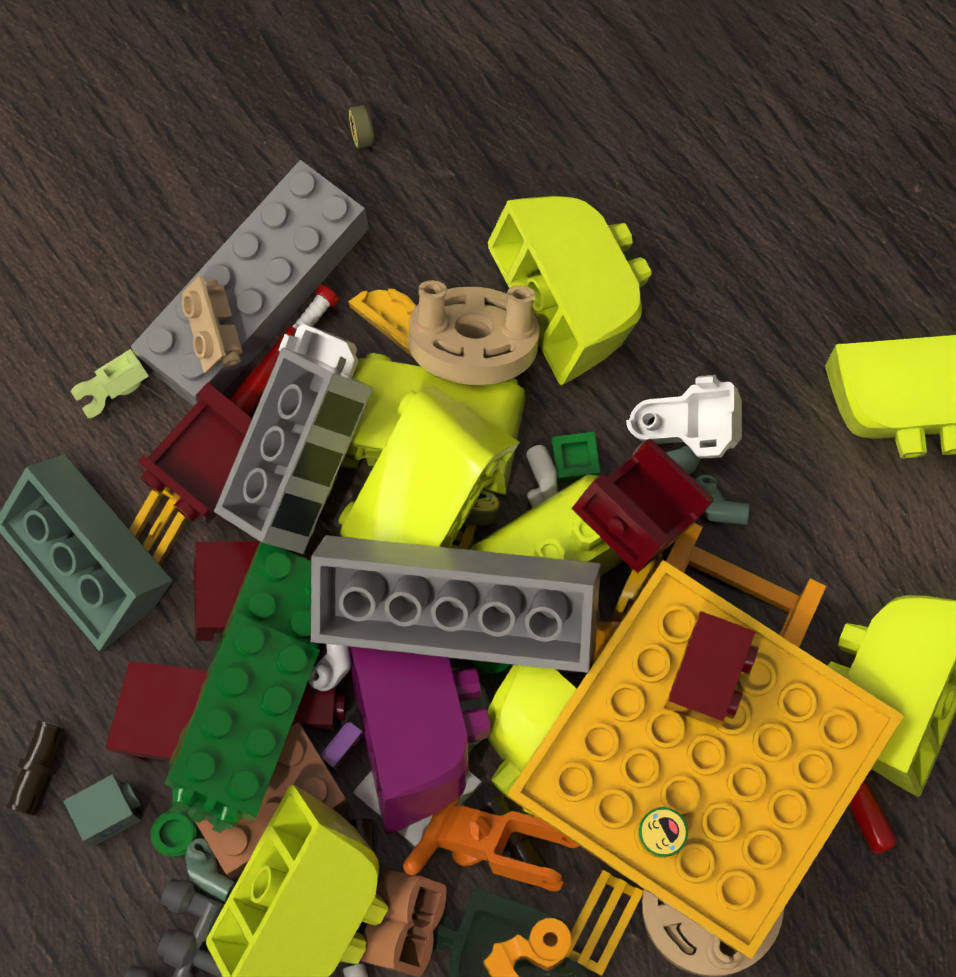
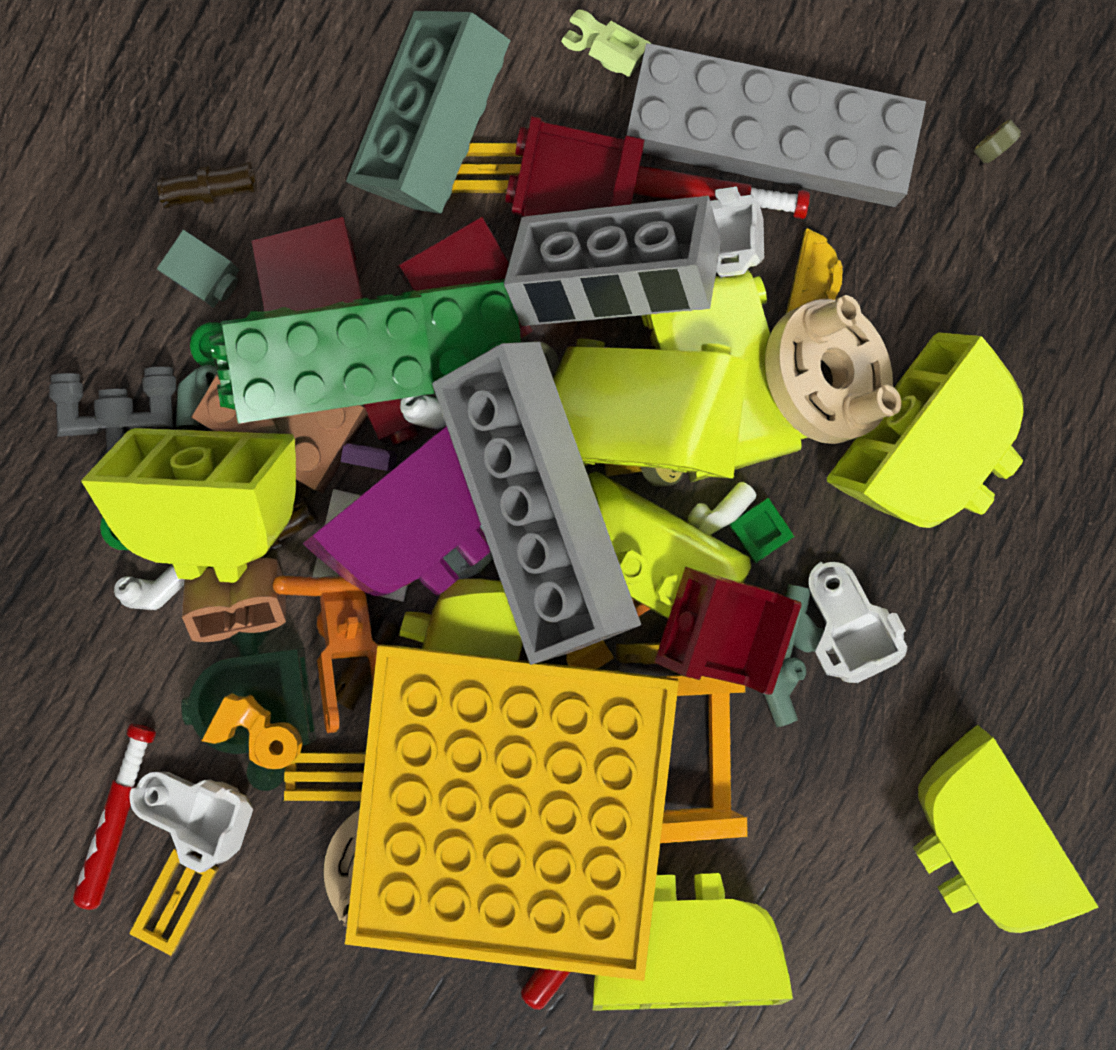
camera: 55 degrees right, 15 degrees up
(205, 306) = (719, 94): tan hinge -> none
(663, 832) = (415, 809): tile -> none
(711, 670) = (588, 784): dark red brick -> none

